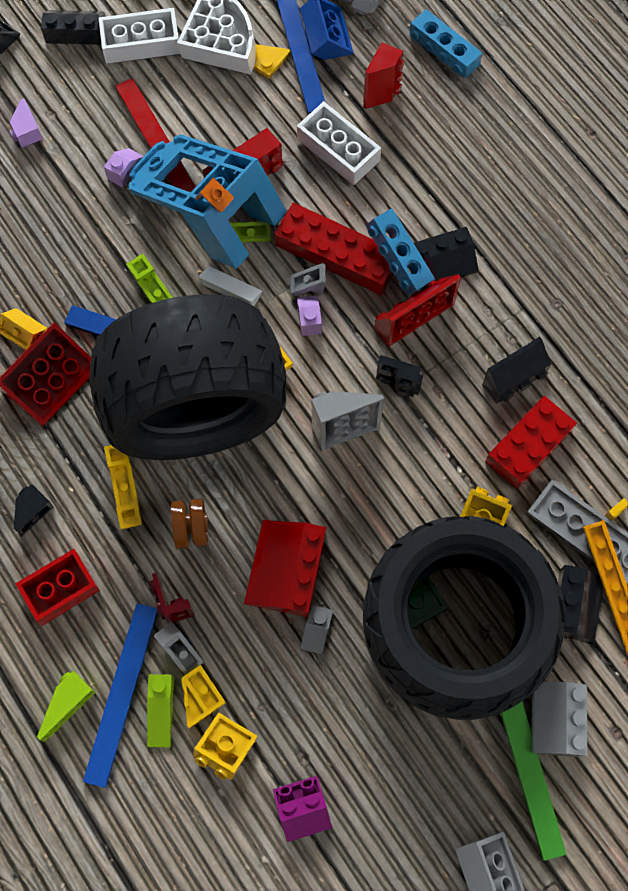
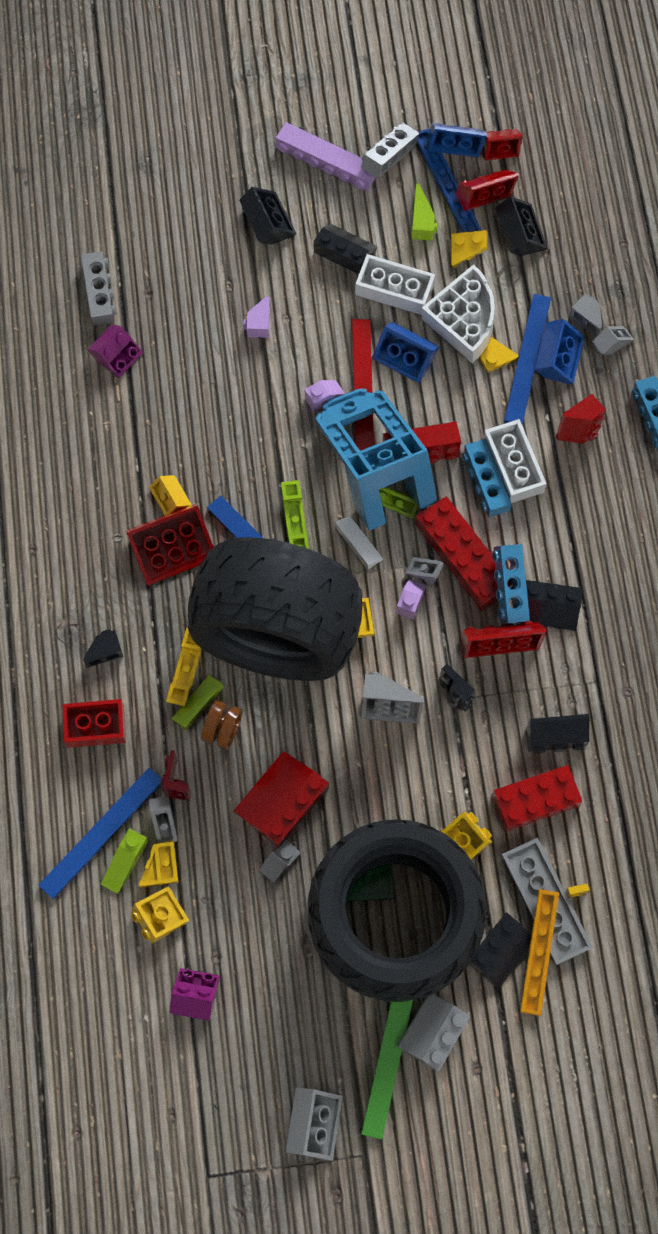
camera: 25 degrees right, 0 degrees up
(66, 701) = (56, 816): lime slope -> none
(152, 515) = (198, 702): none -> lime slope
(181, 92) = (405, 352): none -> blue slope
(216, 195) = (376, 466): orange bracket -> none
(303, 149) = (481, 451): none -> dark azure brick

